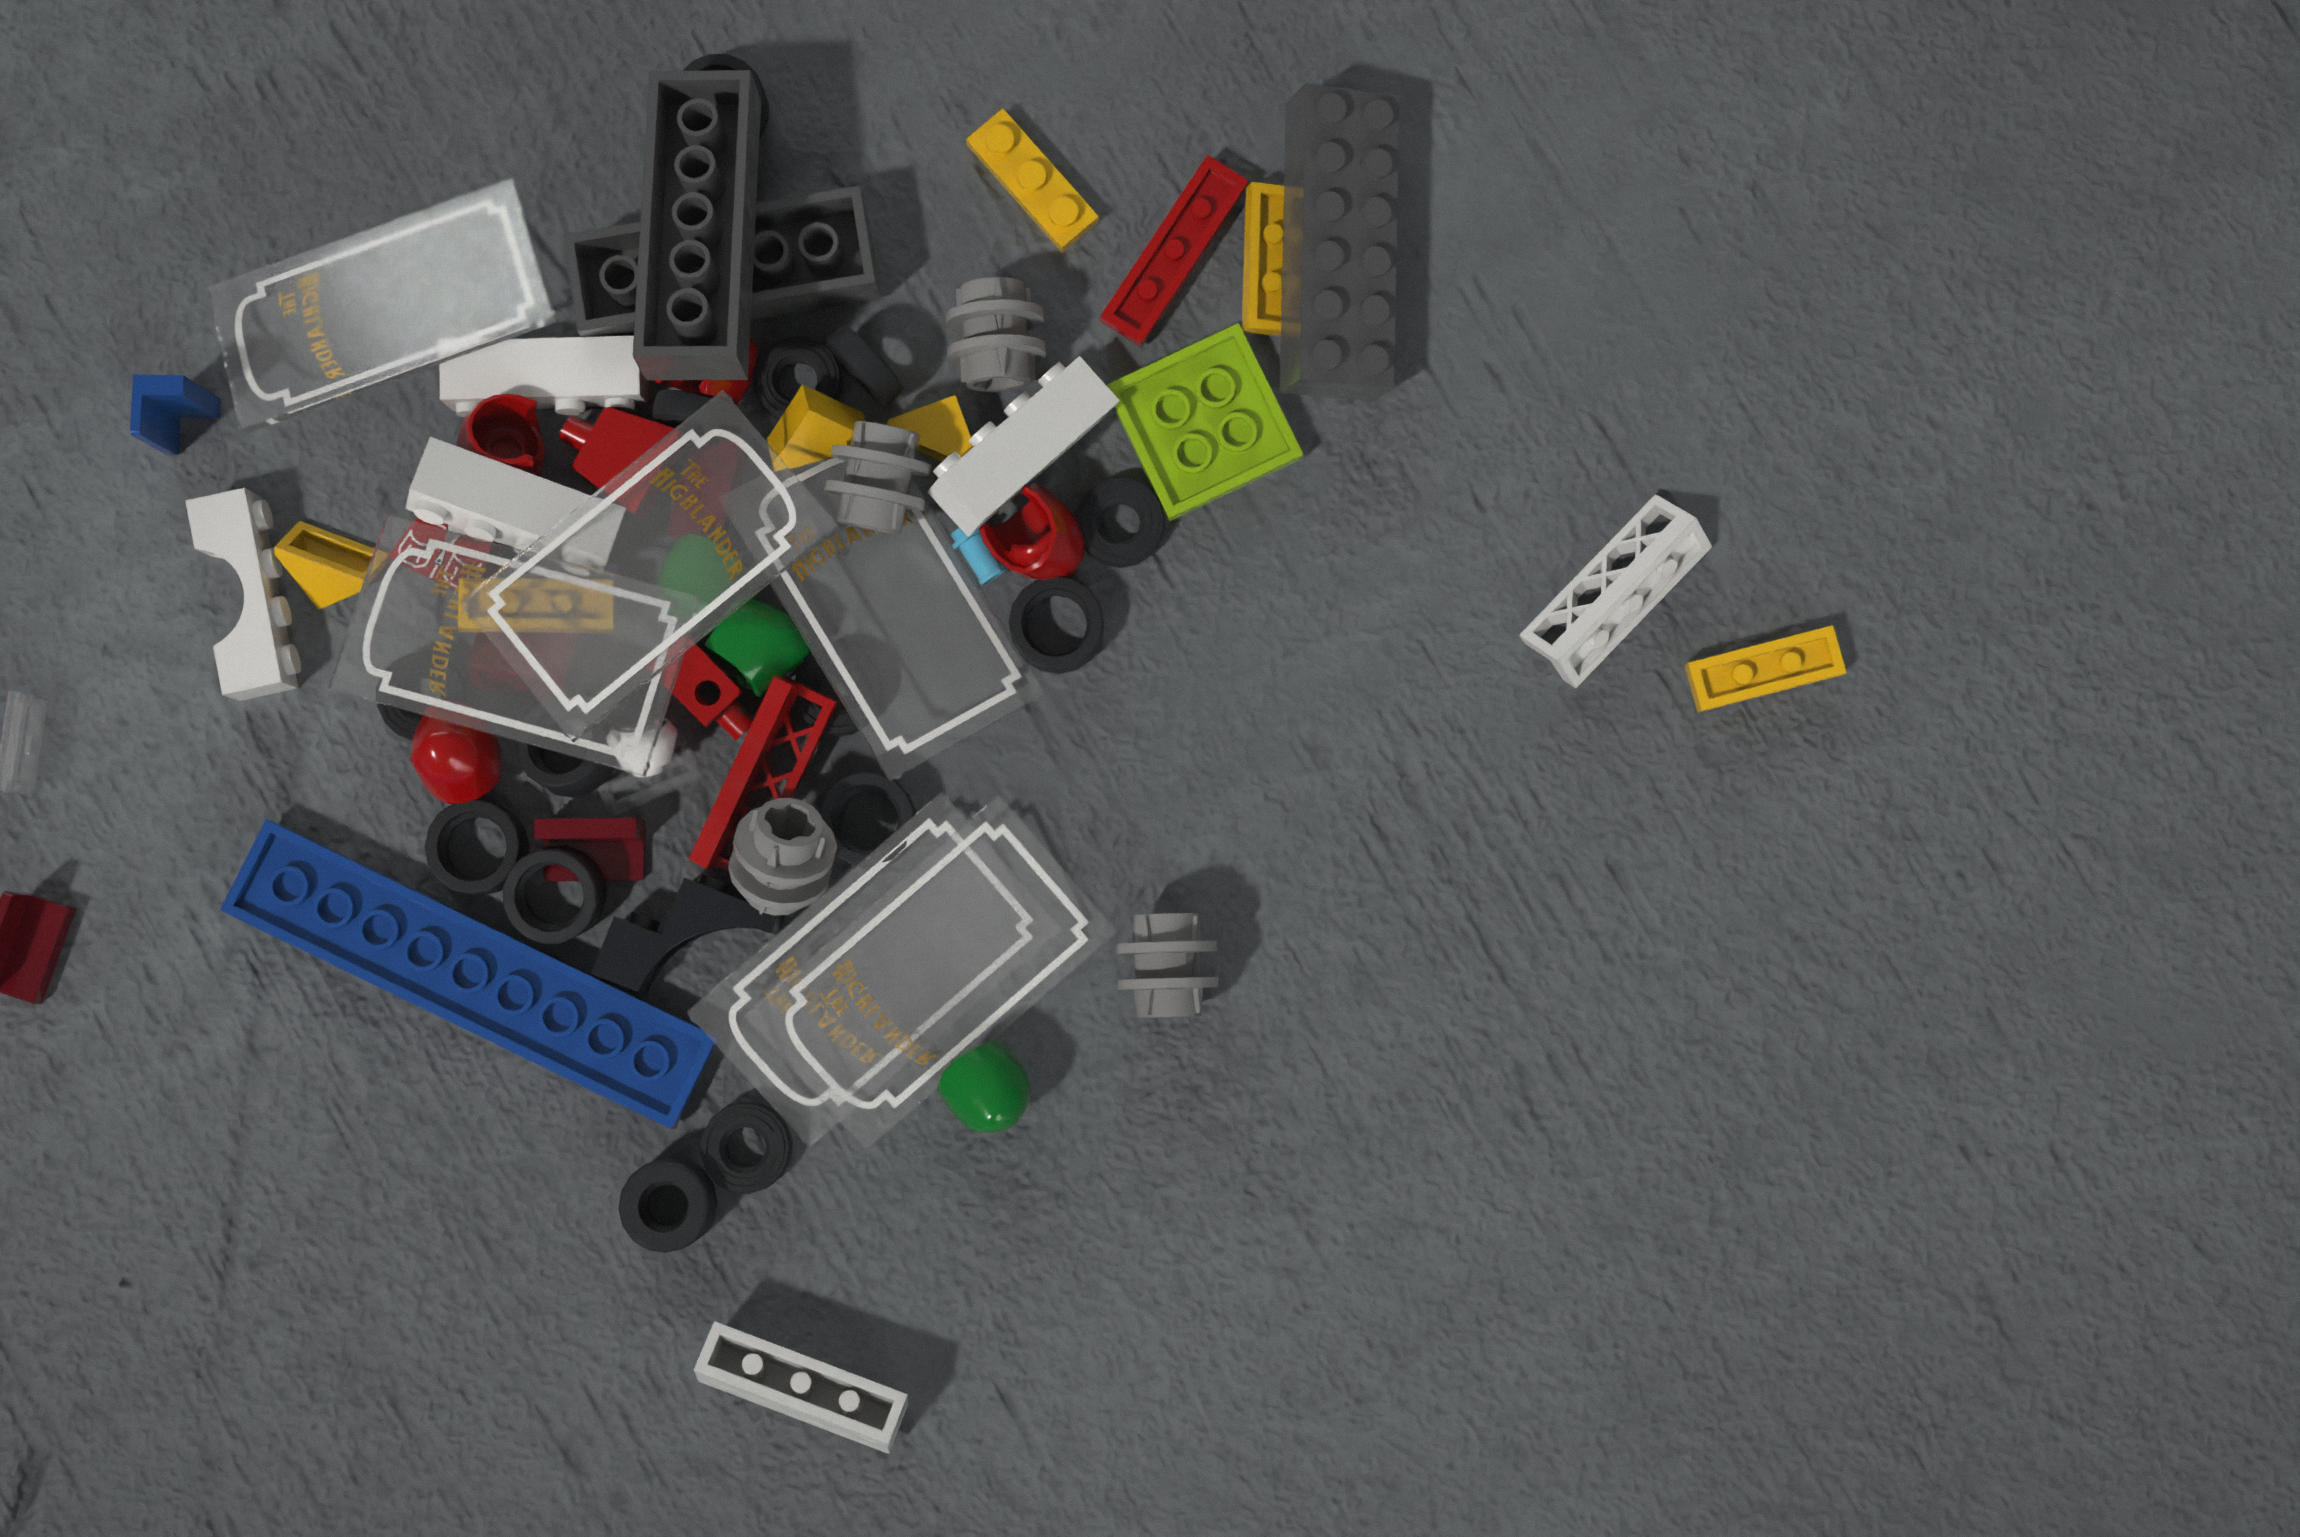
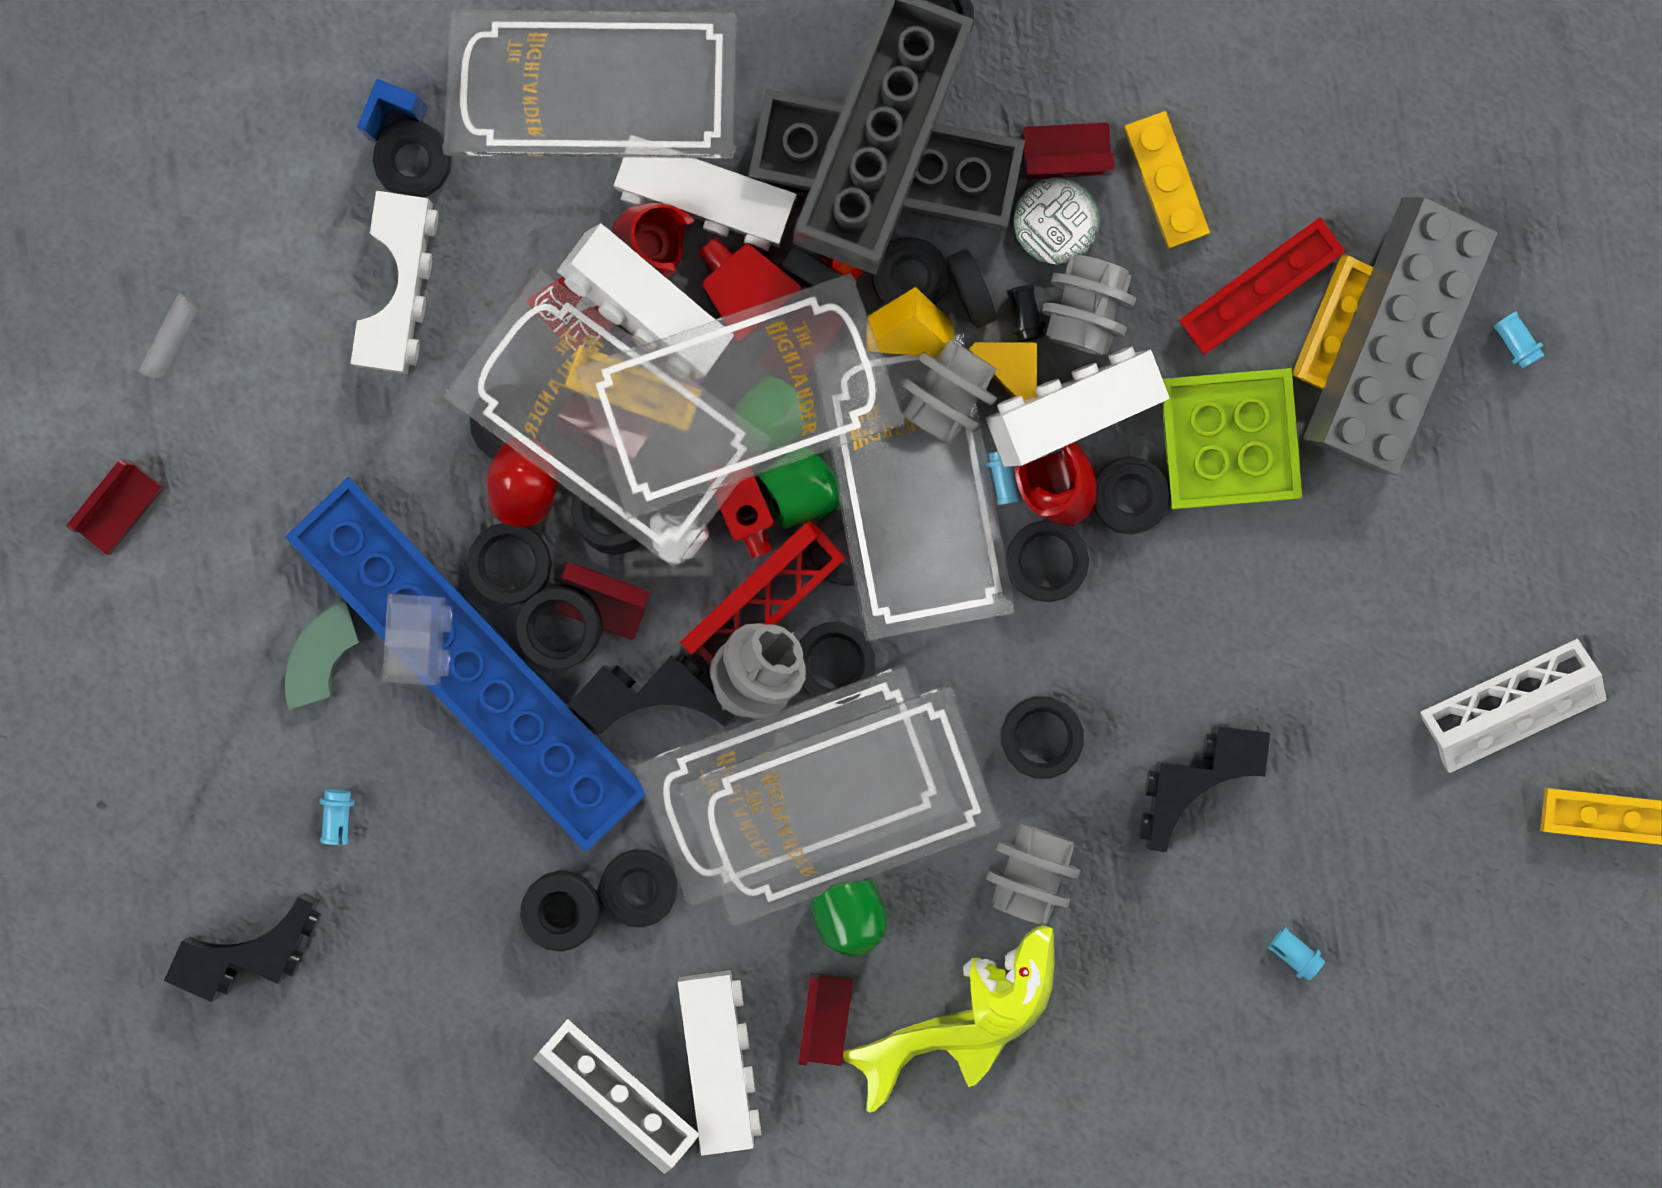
camera: 15 degrees right, 5 degrees up
(198, 436) = (385, 155): none -> black tyre
(303, 1026) = (316, 654): none -> sand green tile
(323, 563) = (470, 283): yellow slope -> none
(368, 1375) = (207, 967): none -> black arch
(385, 1195) = (336, 816): none -> medium azure pin
(397, 965) = (416, 639): none -> clear brick
(902, 1308) = (717, 1063): none -> white brick
(916, 190) = (1067, 151): none -> dark red panel
(928, 264) = (1056, 221): none -> tile
(934, 372) = (1025, 313): none -> black pin
(1003, 1214) = (825, 1019): none -> dark red panel
(1129, 778) = (1065, 714): none -> black tyre
(1174, 1171) = (975, 1036): none -> neon yellow piece
(1334, 755) = (1174, 786): none -> black arch
(1468, 206) = (1519, 340): none -> medium azure pin
(1489, 945) = (1296, 954): none -> medium azure pin

